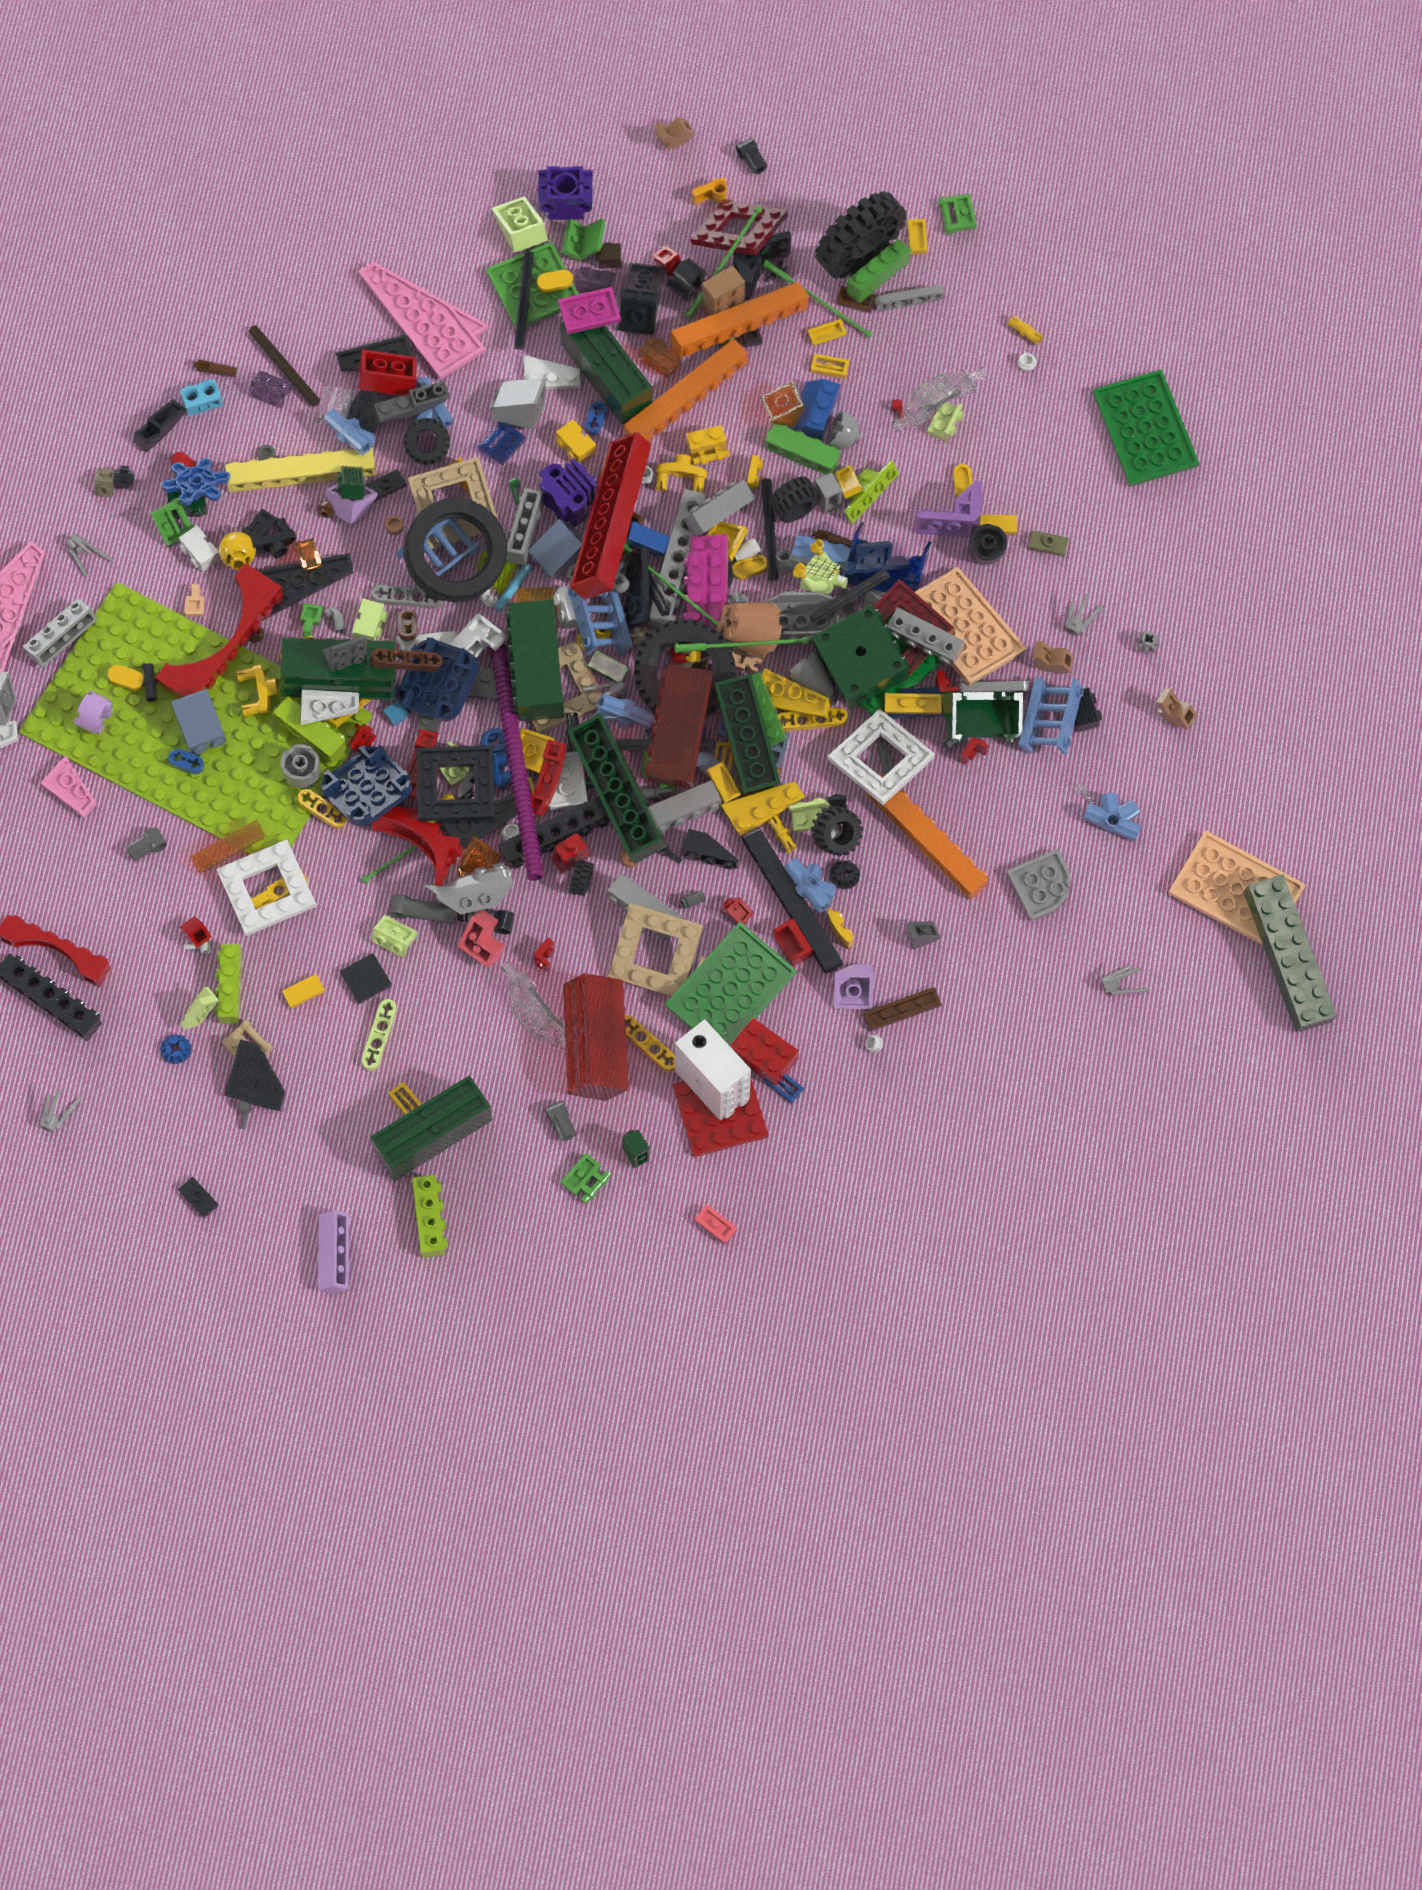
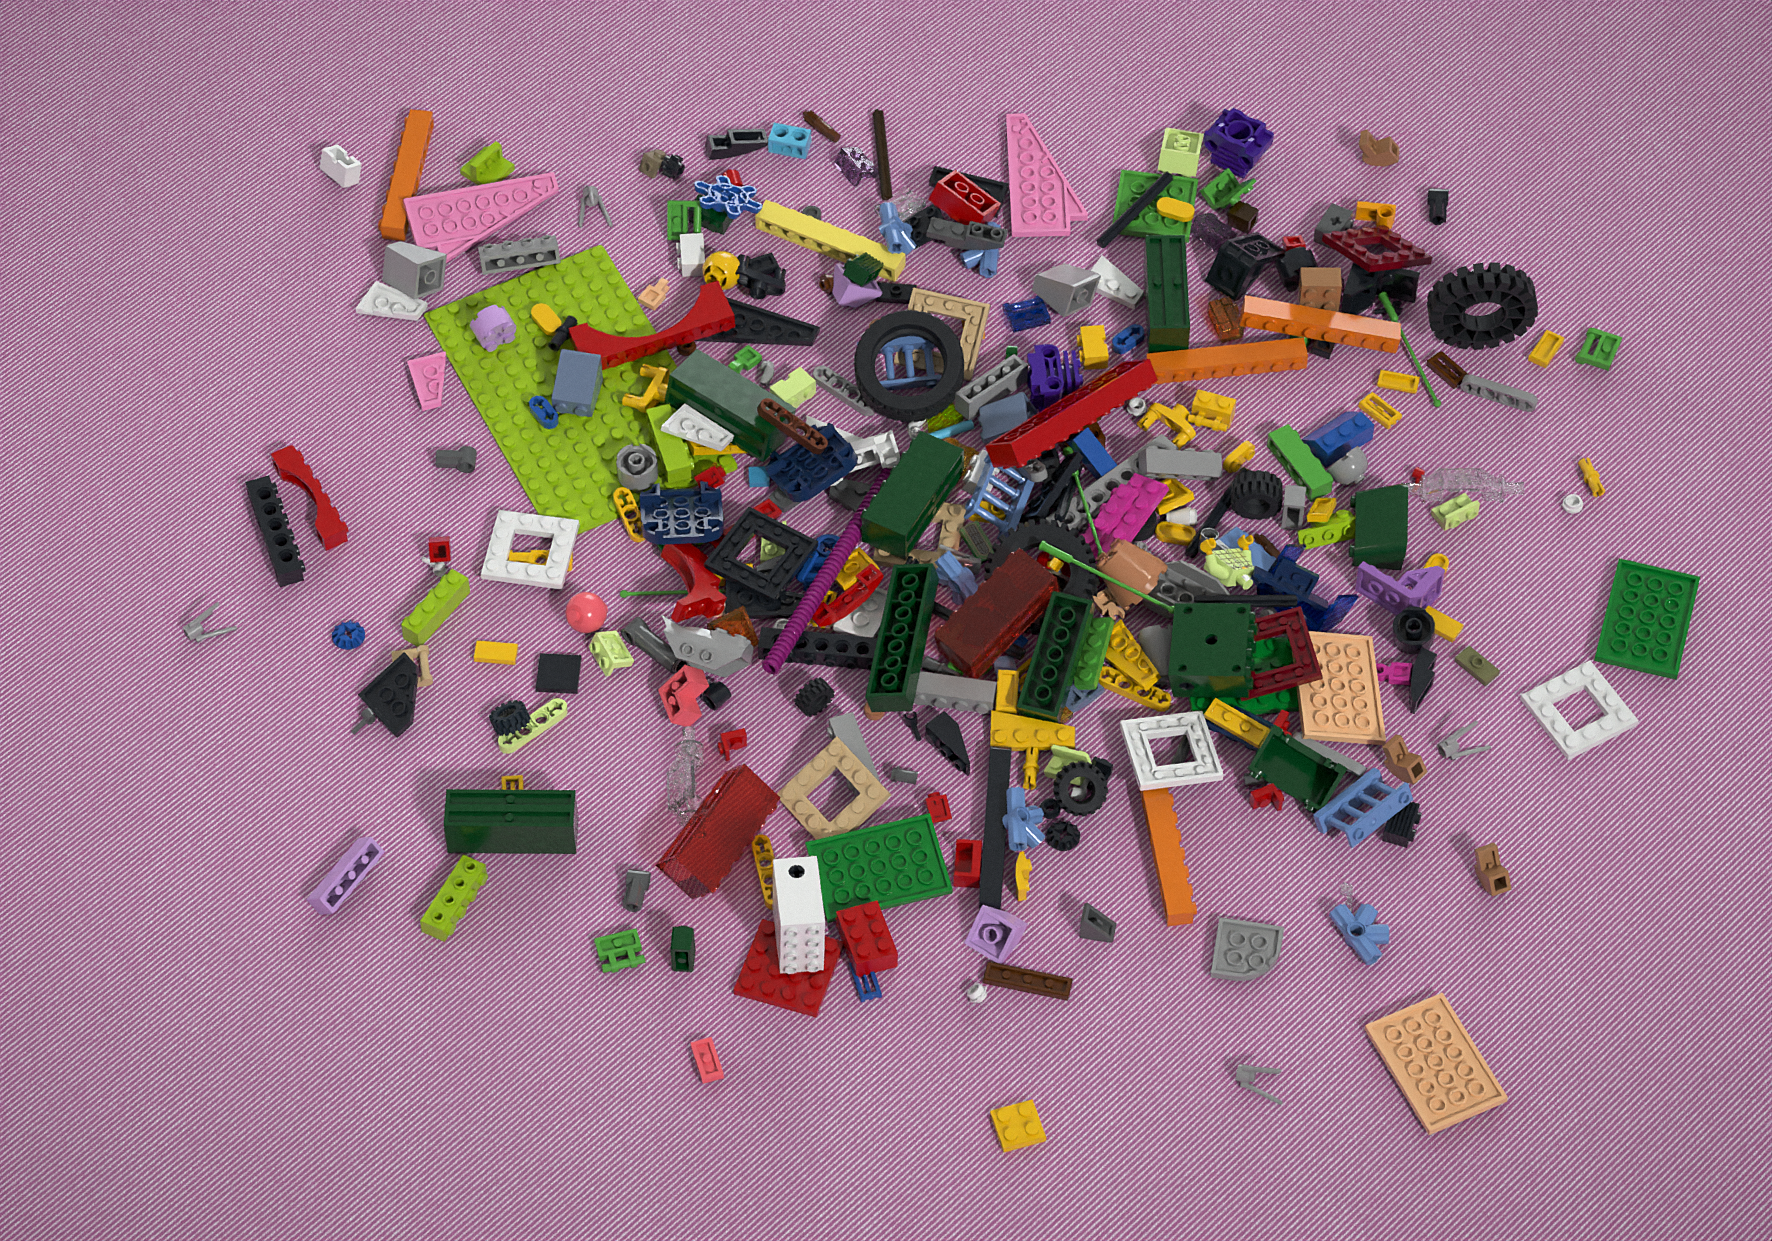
camera: 35 degrees right, 15 degrees down
(198, 1197) = (268, 765): black plate -> none
(199, 1009) = (390, 611): yellowish green bracket -> none
(228, 846) = (524, 498): clear orange plate -> none
(307, 554) = (781, 305): clear orange slope -> none
(346, 653) = (740, 386): dark grey bracket -> none
(353, 915) = (586, 612): none -> coral brick
(354, 1047) = (509, 717): none -> black bush
(408, 625) = (824, 410): reddish brown plate -> none
(426, 457) = (947, 262): black tyre -> none
(570, 852) = (824, 666): red torso -> none
(589, 310) = (1179, 236): dark pink plate -> none
(683, 214) = (1335, 219): none -> dark grey brick
(698, 300) = (1294, 292): bright green piece -> none
(784, 405) = (1307, 414): clear orange slope -> none
(820, 853) = (1050, 803): none -> black plate
(878, 270) = (1484, 353): bright green brick -> none
(903, 468) = (1380, 526): none -> dark green windscreen
(925, 636) = (1287, 666): light grey brick -> none
(976, 1129) = (1018, 1125): none -> yellow plate
(996, 585) = (1396, 674): none -> dark pink plate
(1016, 580) = (1422, 678): none -> black slope
(1147, 646) = (1510, 800): light grey gear -> none
(1155, 566) = (1617, 716): none -> white plate
(1289, 953) = (1442, 1146): brick -> none

